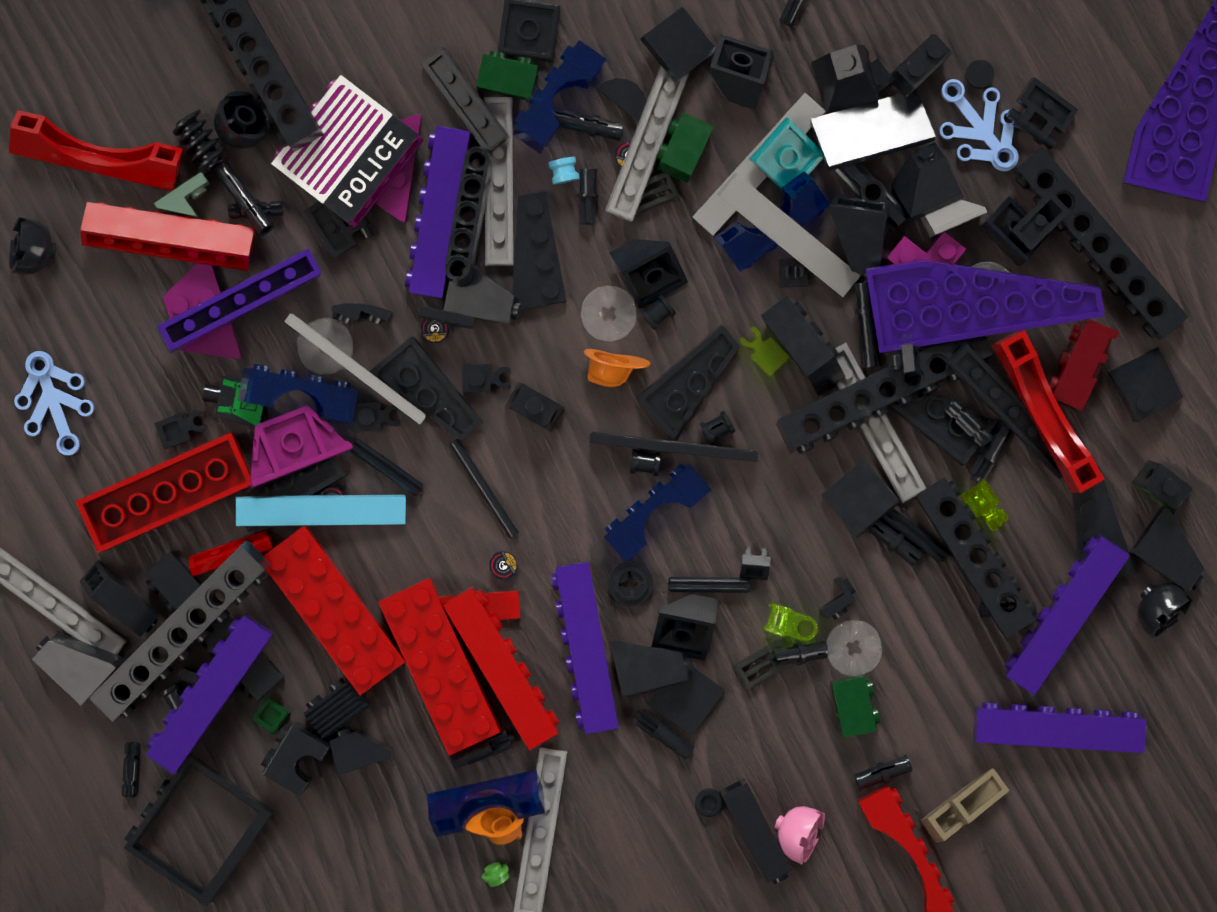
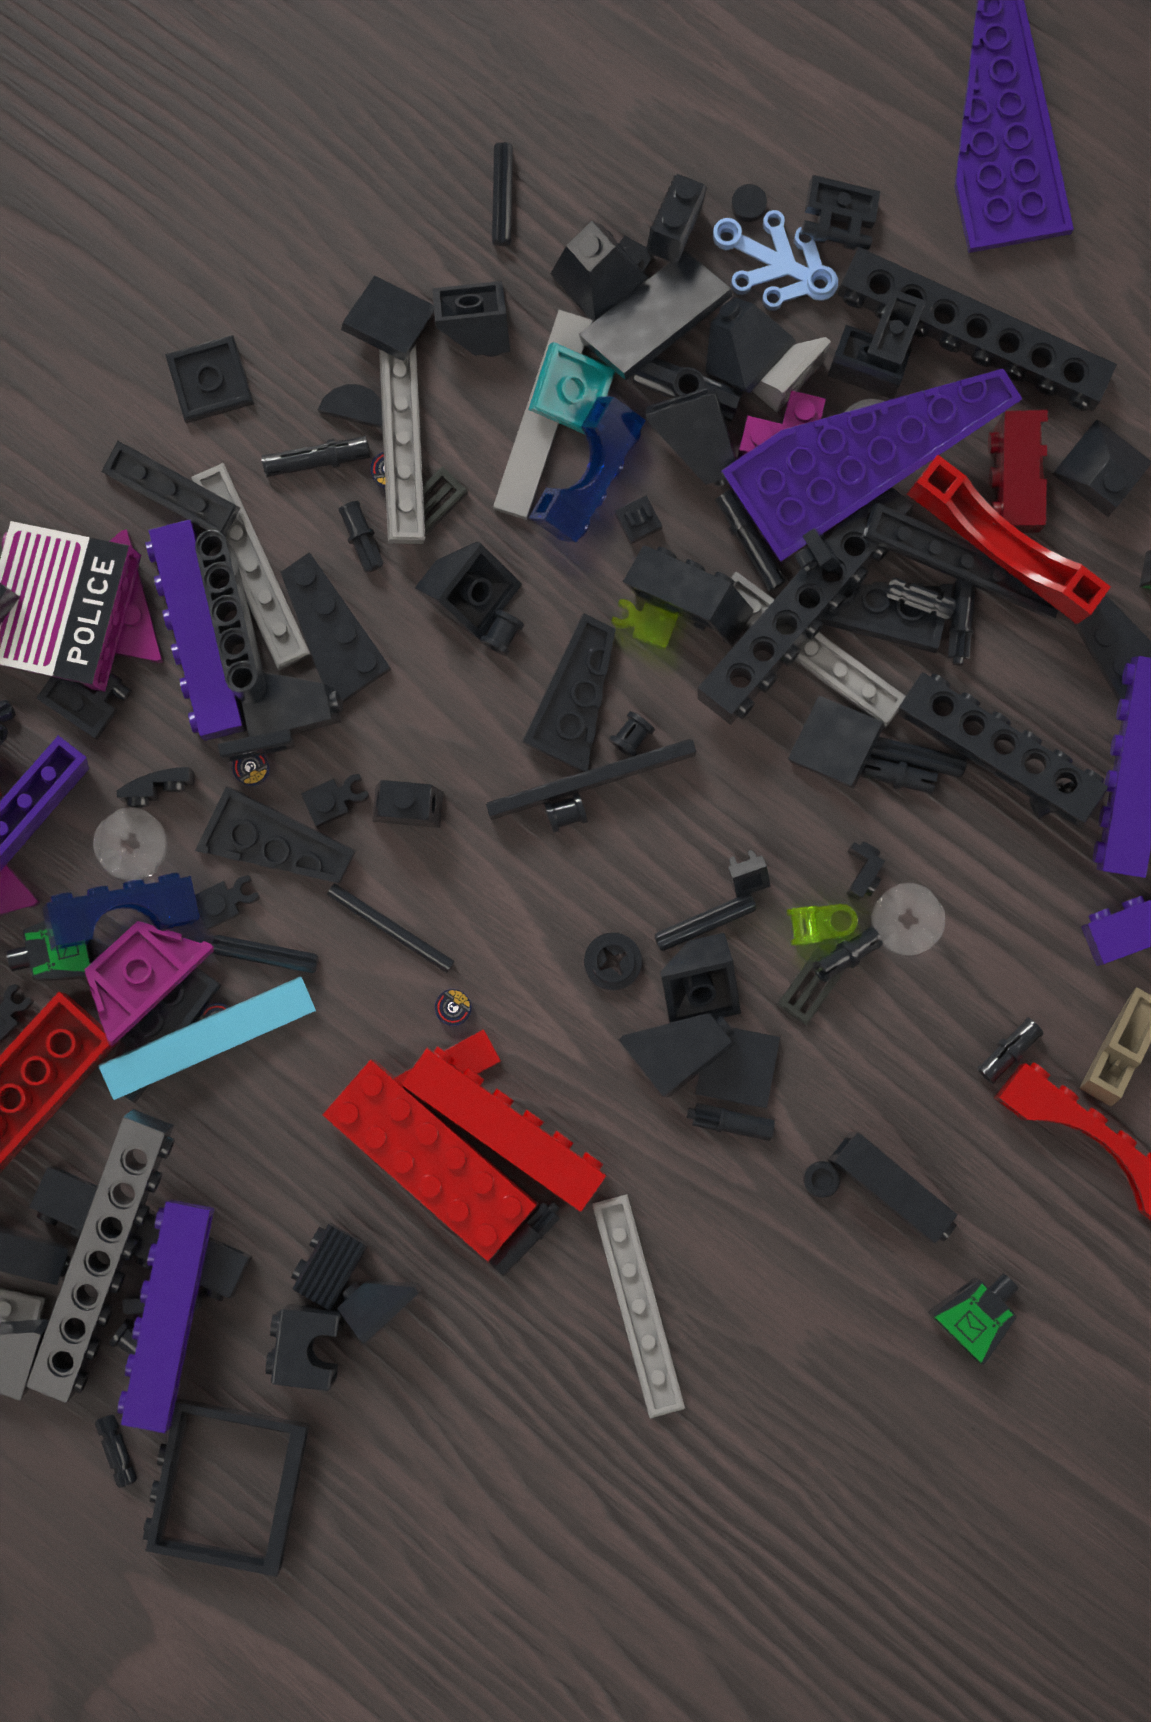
camera: 20 degrees left, 5 degrees down
(216, 556) = (95, 1160): red tile -> none
(270, 715) = (255, 1309): dark green tile -> none
(333, 610) = (274, 1149): red brick -> none
(355, 368) = (174, 851): light grey tile -> none
(454, 807) = (523, 1320): clear blue arch -> none
(495, 874) = (607, 1379): bright green plate -> none
(497, 825) = (576, 1314): orange piece -> none
(507, 76) = (207, 441): dark green brick -> none
(564, 170) = (320, 518): medium azure wheel -> none
(578, 69) = (284, 397): clear blue arch -> none
(586, 647) = (594, 1060): dark purple brick -> none
(608, 297) = (436, 642): clear plate -> none
(611, 369) = (477, 722): orange piece -> none
(684, 148) = (448, 430): dark green brick -> none
(684, 488) = (624, 823): clear blue arch -> none
(788, 234) = (612, 472): light grey tile -> none
(798, 832) = (944, 1165): bright pink cylinder -> none
(854, 705) = (940, 986): dark green brick -> none
(984, 502) = (981, 683): clear neon green plate -> none

